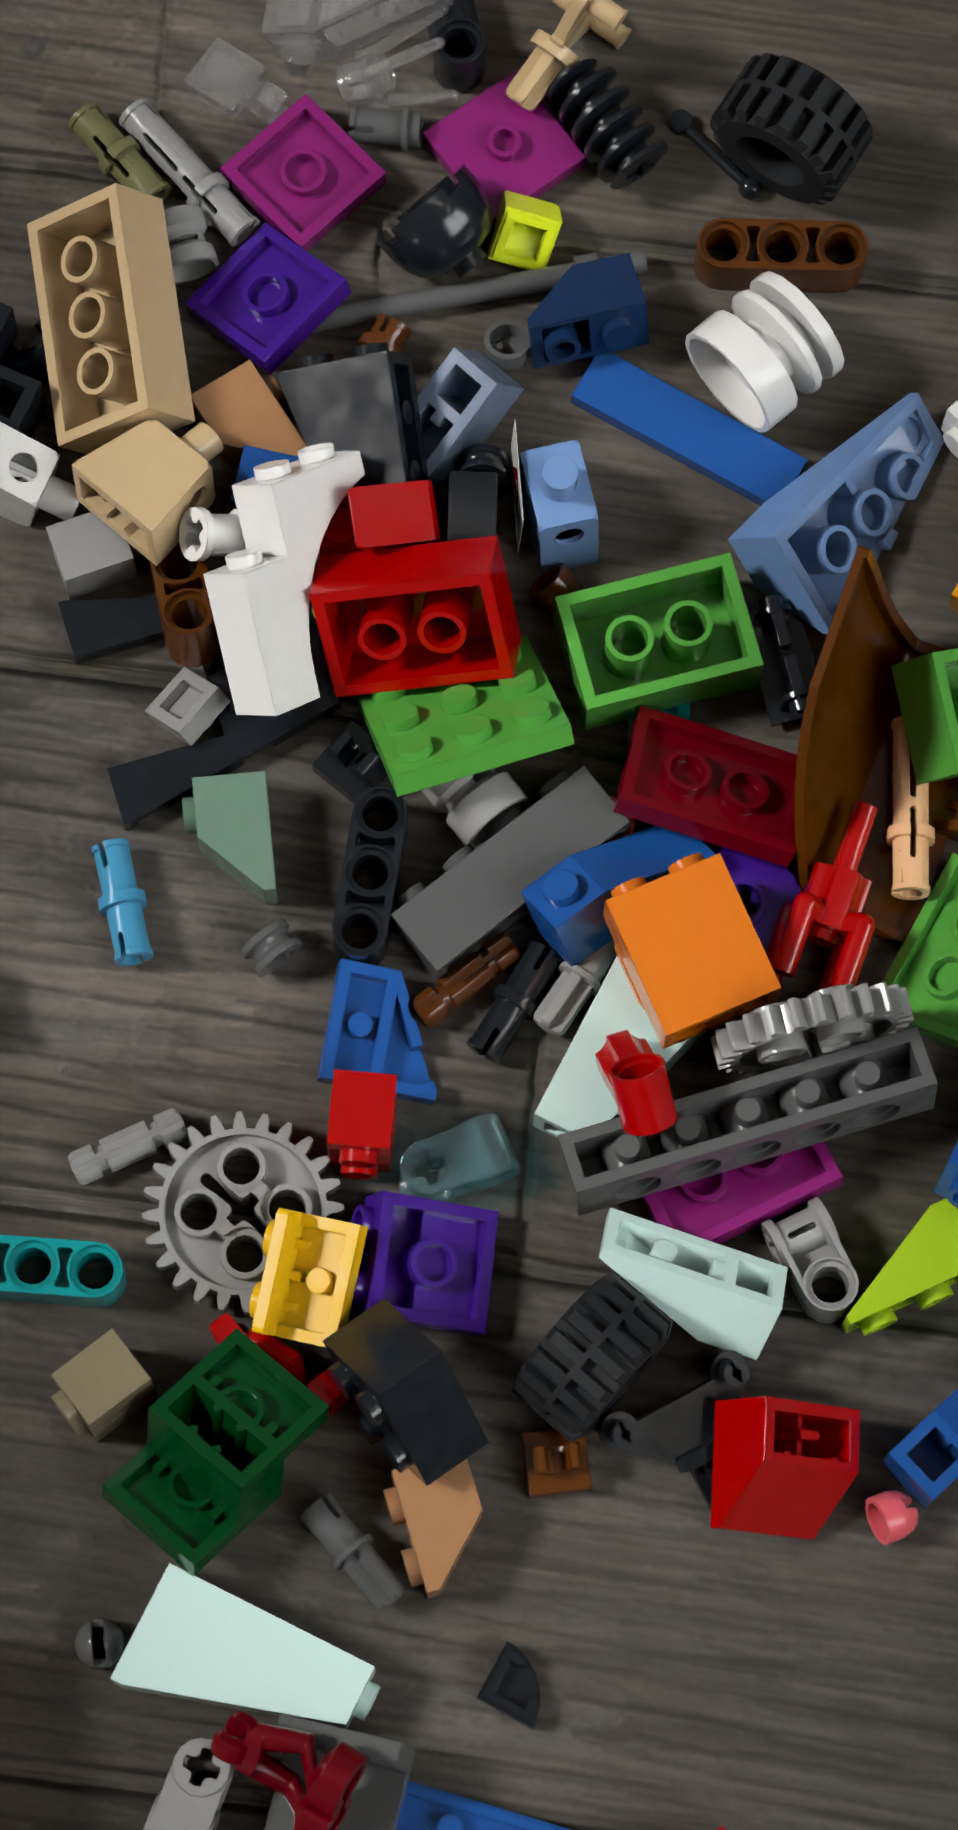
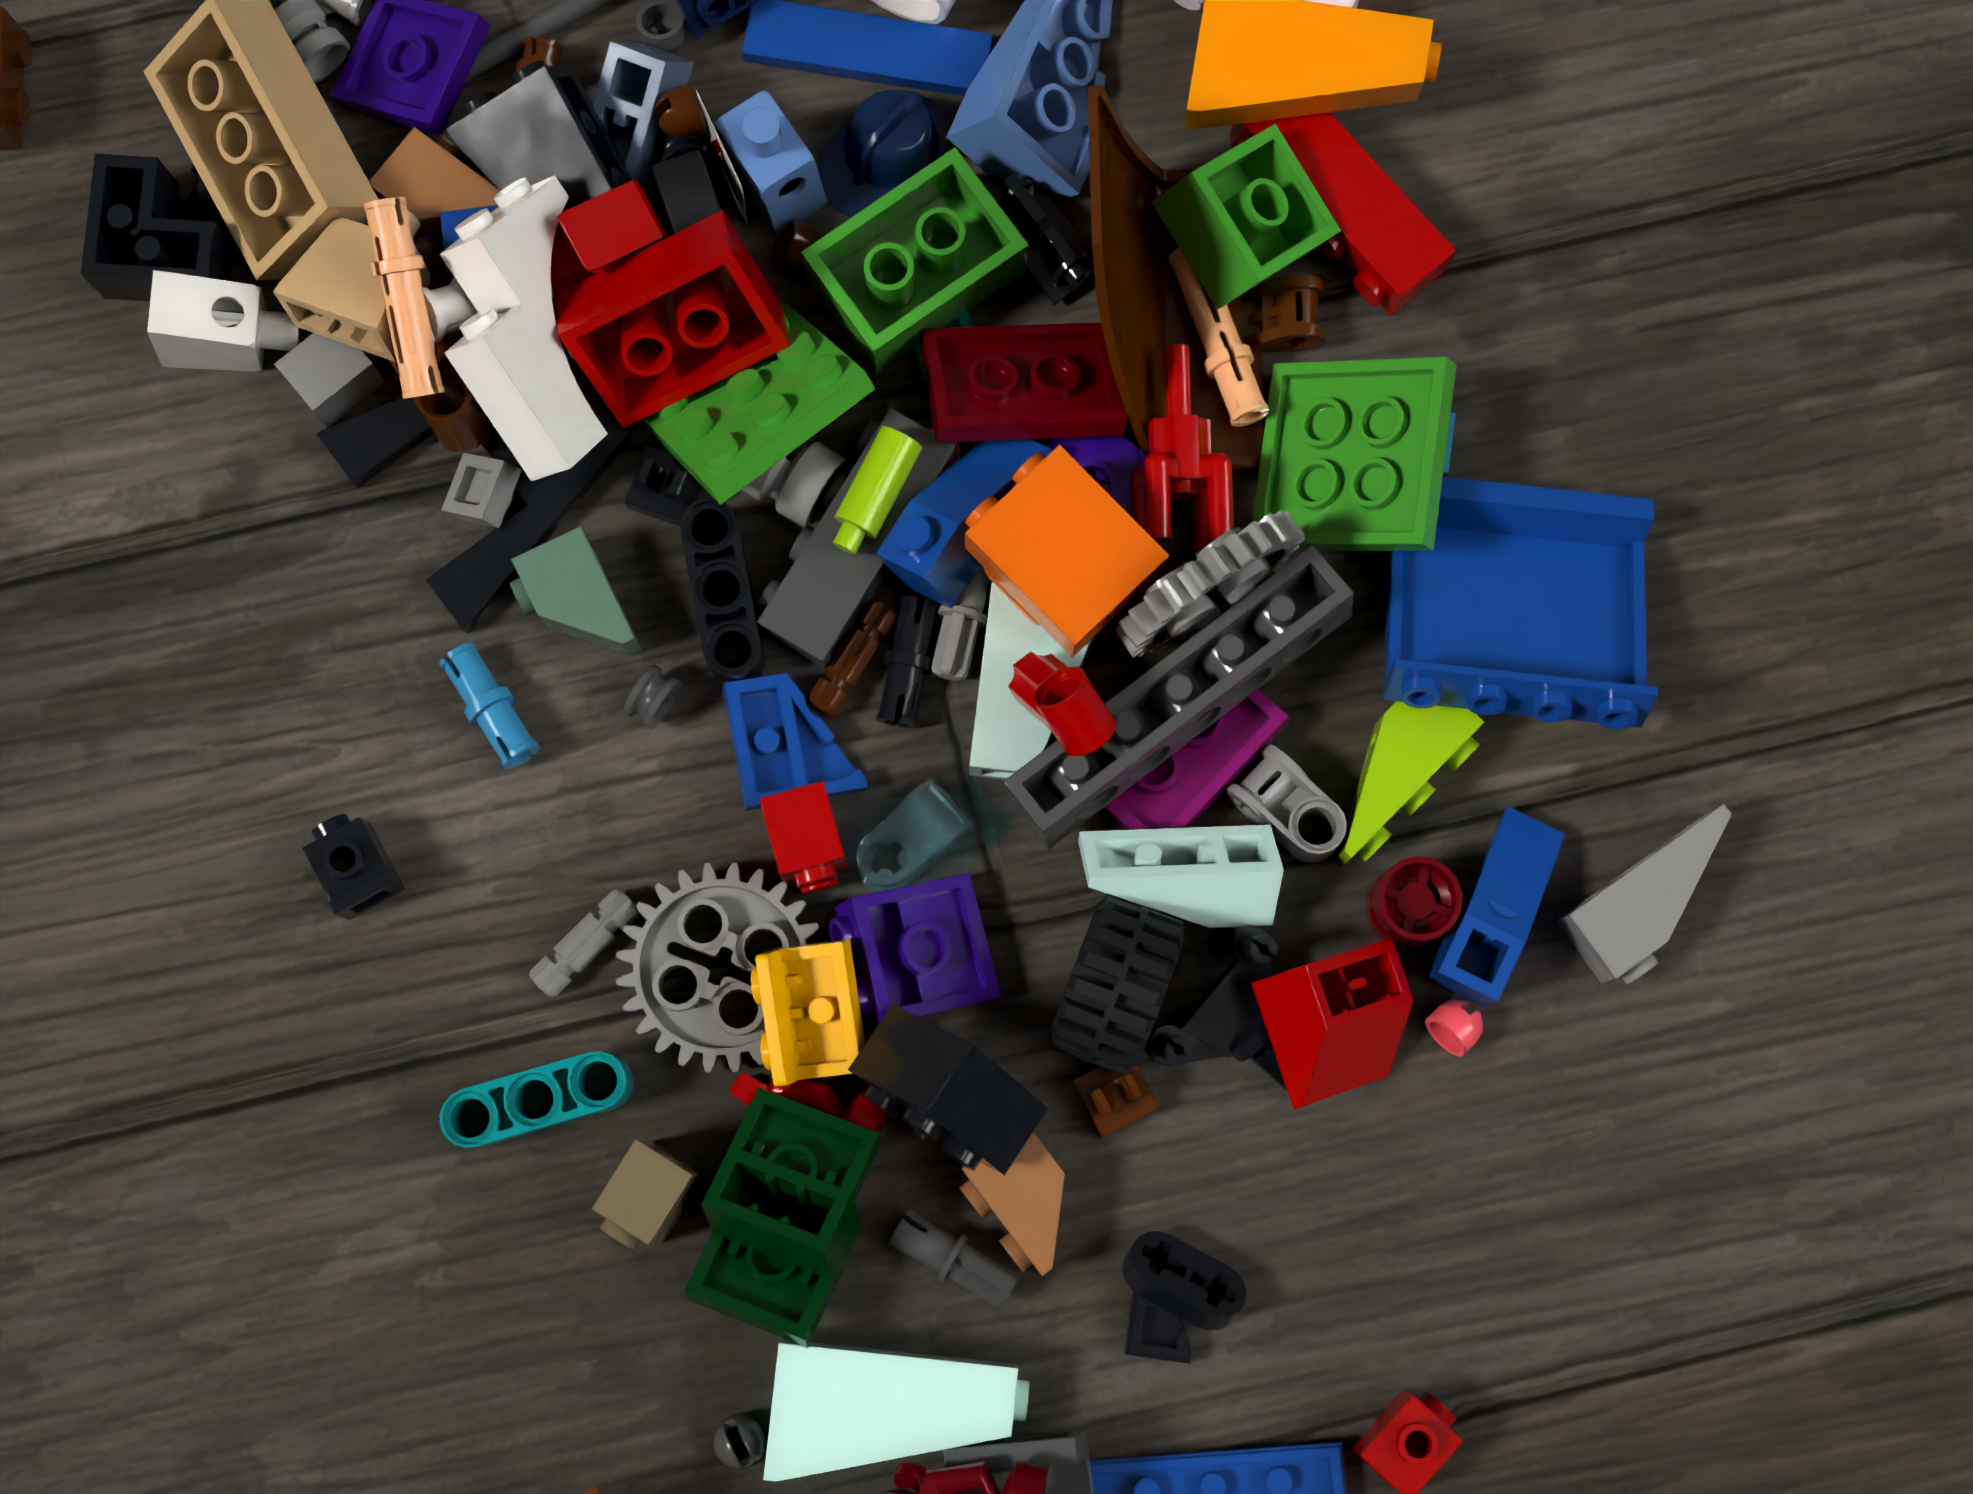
camera: 20 degrees left, 5 degrees up
(186, 511) = (403, 296): none -> light nougat pin
(492, 431) = (679, 112): none -> reddish brown hinge
(542, 832) = (875, 488): none -> lime cylinder
(555, 1650) = (1184, 1280): none -> black beam
(666, 527) = (881, 148): none -> dark blue piece
(893, 1387) = (1414, 902): none -> dark red wheel

